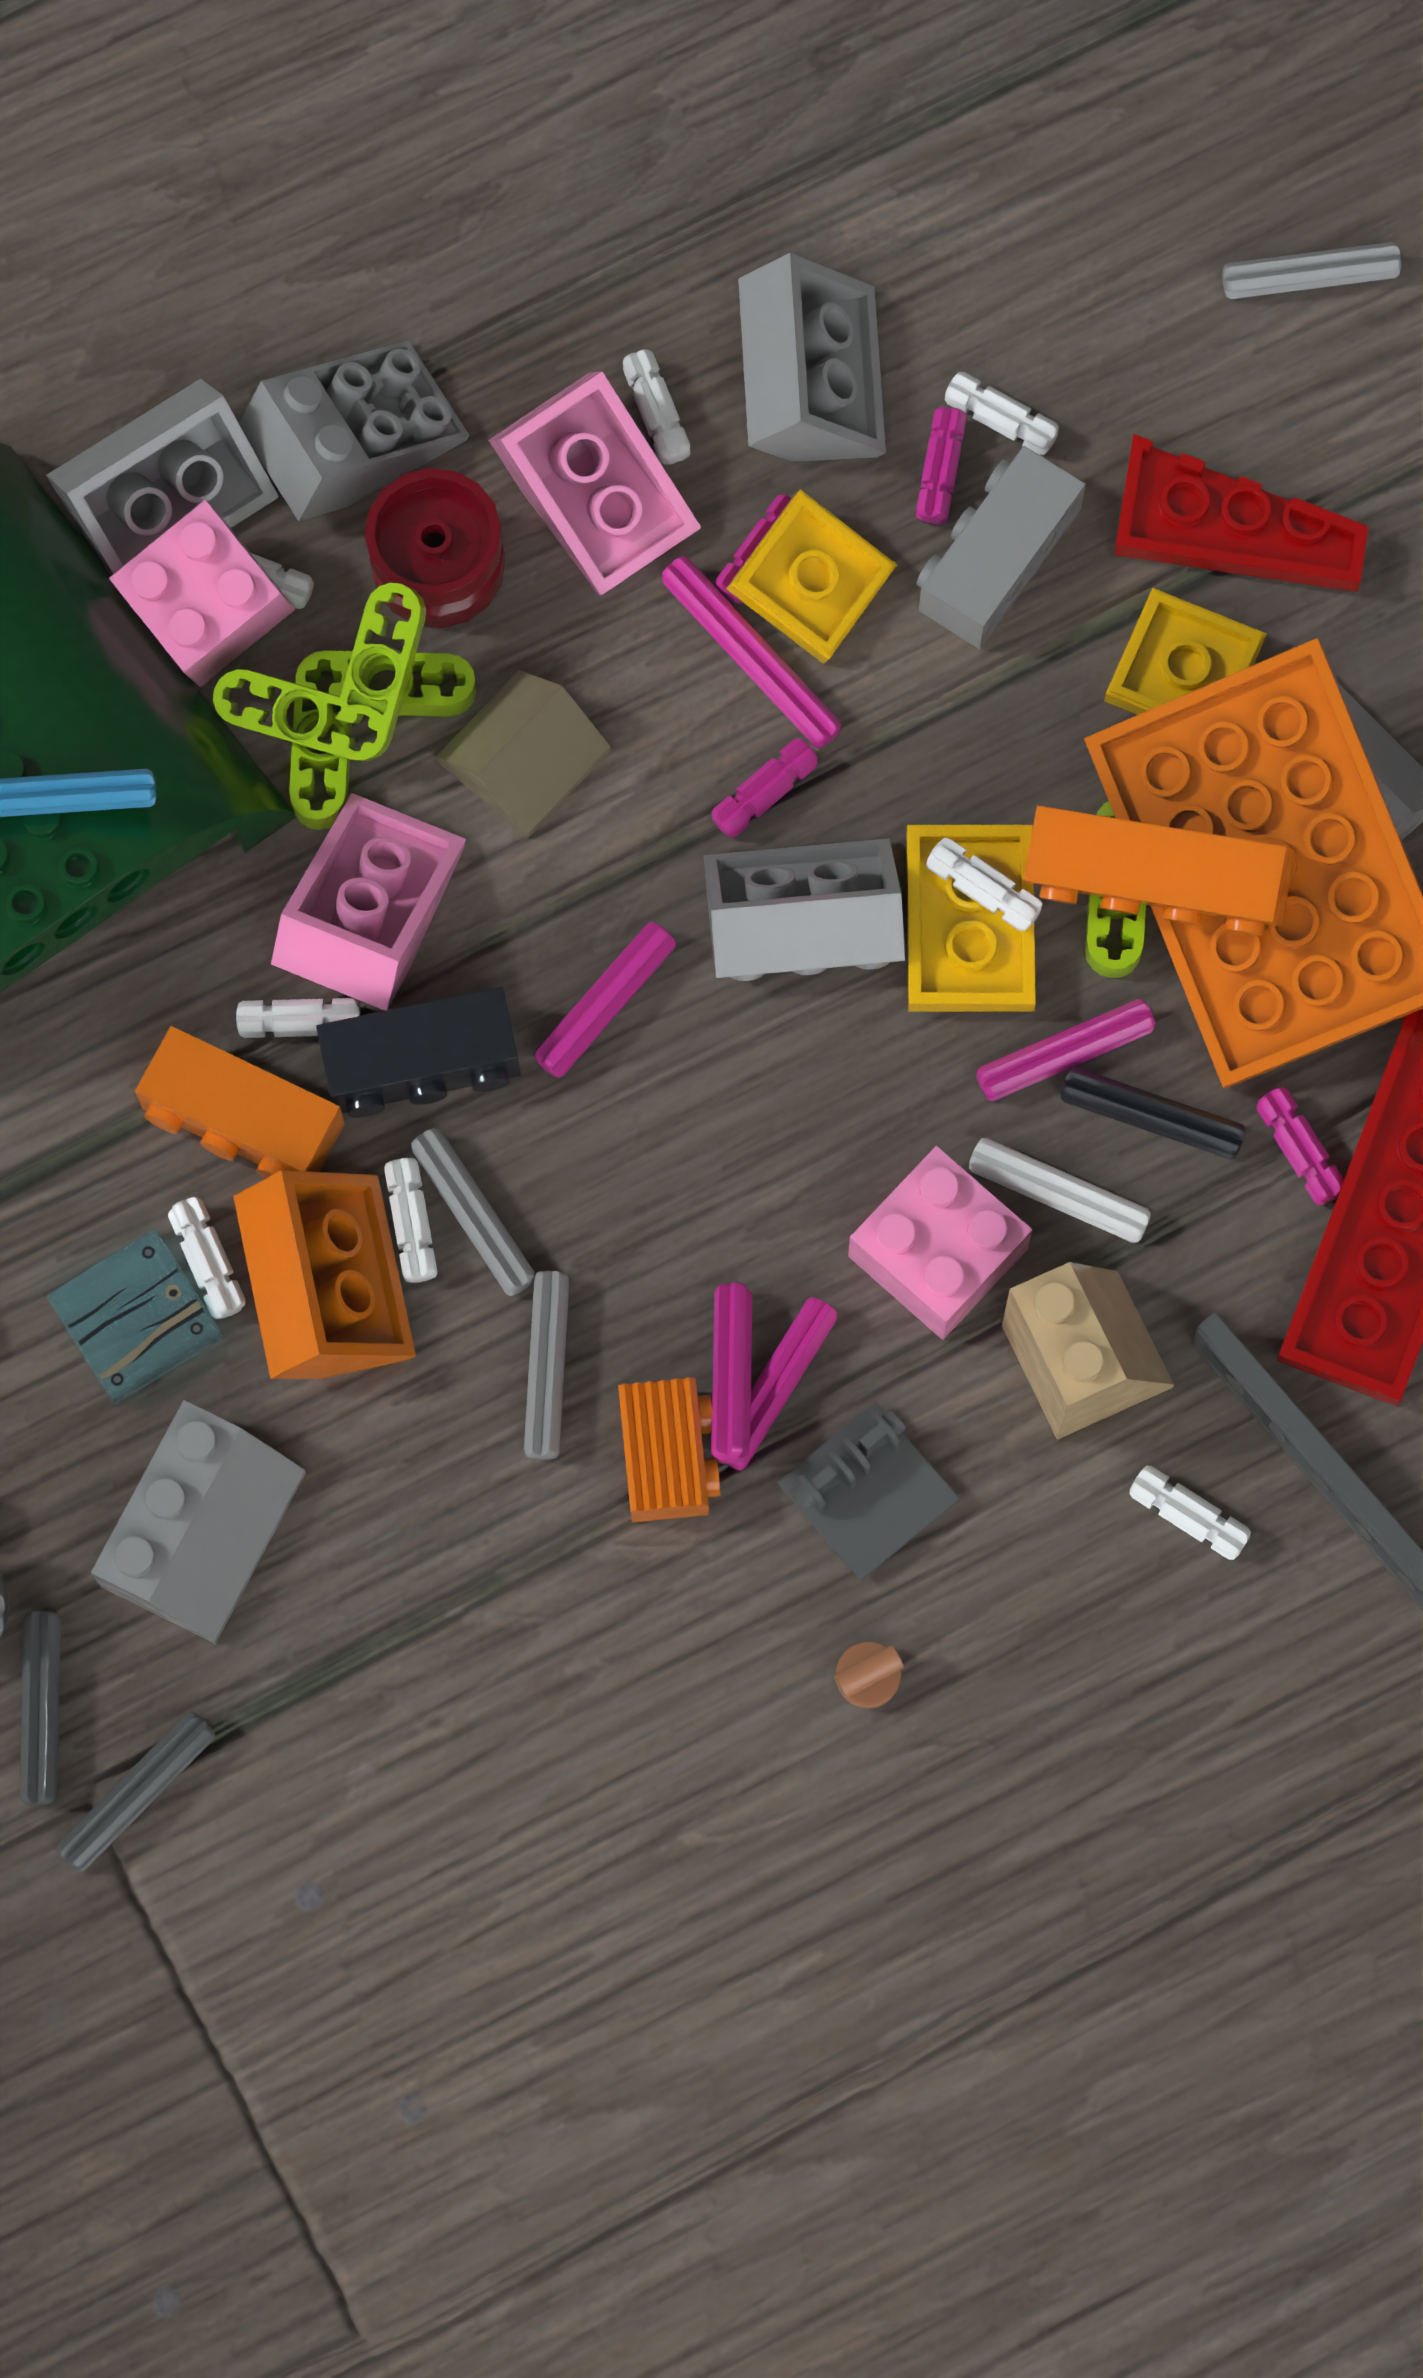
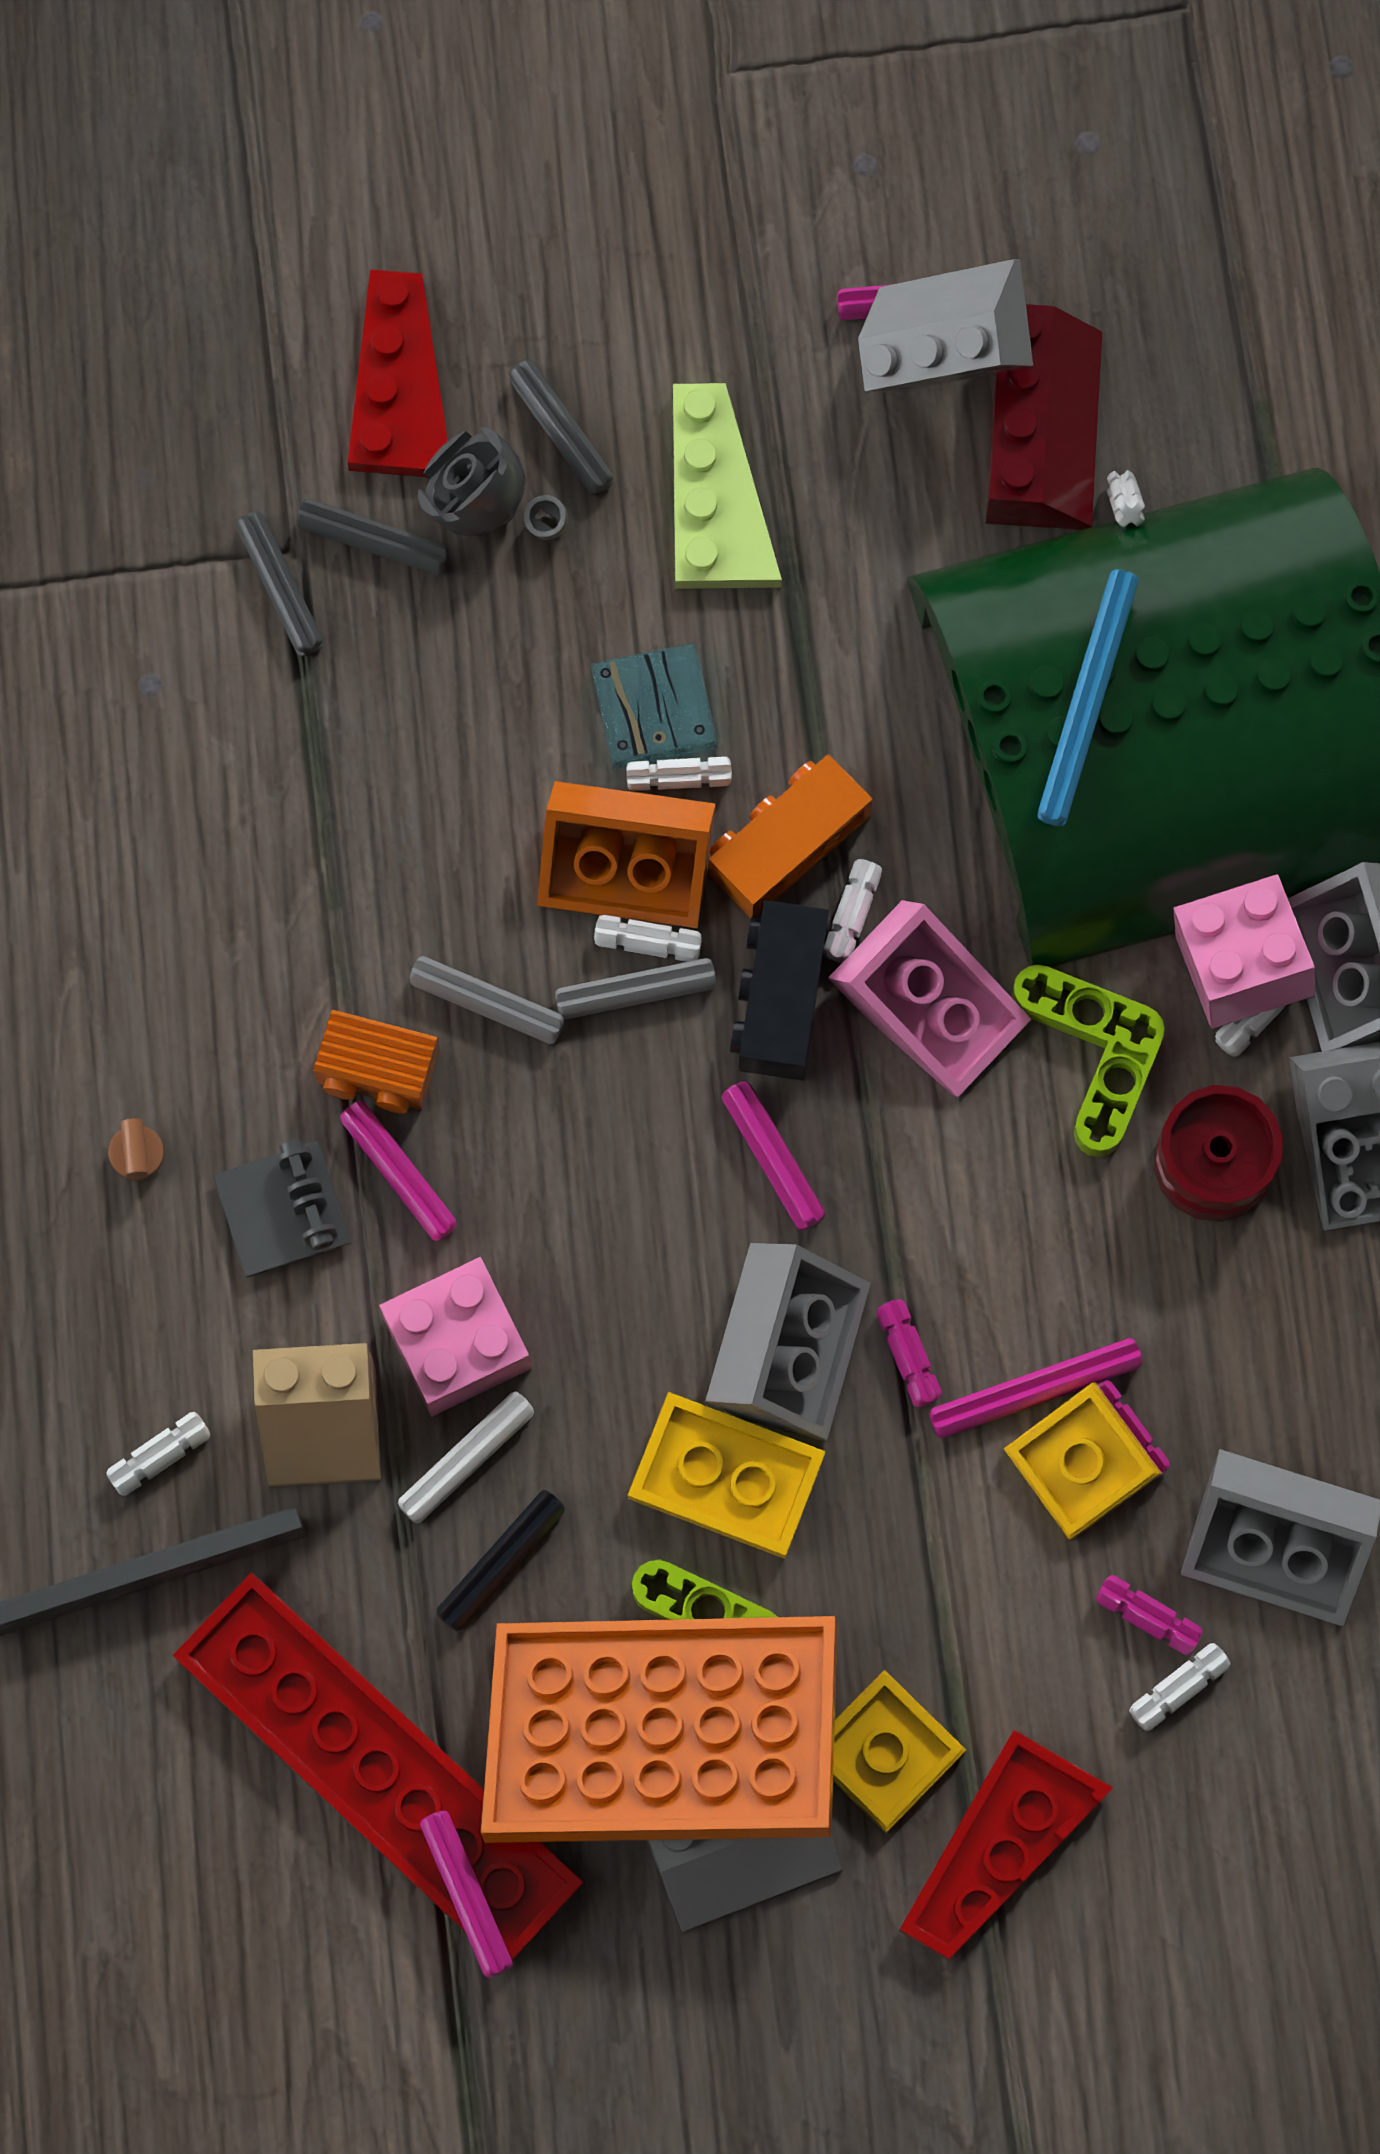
camera: 110 degrees right, 0 degrees up
(198, 1522) = (465, 693): light grey slope -> none
(355, 697) = (1101, 1036): lime beam -> none
(525, 750) = (1015, 1168): dark tan slope -> none
(595, 482) = (1238, 1311): bright pink slope -> none
(656, 407) = (1292, 1393): white axle -> none
(731, 1373) = (416, 1133): dark pink axle -> none
(984, 884) = (743, 1488): white axle -> none
(999, 546) = (1051, 1630): light grey brick -> none
(1065, 1049) = (583, 1510): dark pink axle -> none
(1159, 867) = (690, 1627): orange brick -> none
(1300, 1145) = (424, 1670): dark pink axle -> none
(1311, 270) = (1219, 2020): light grey axle -> none

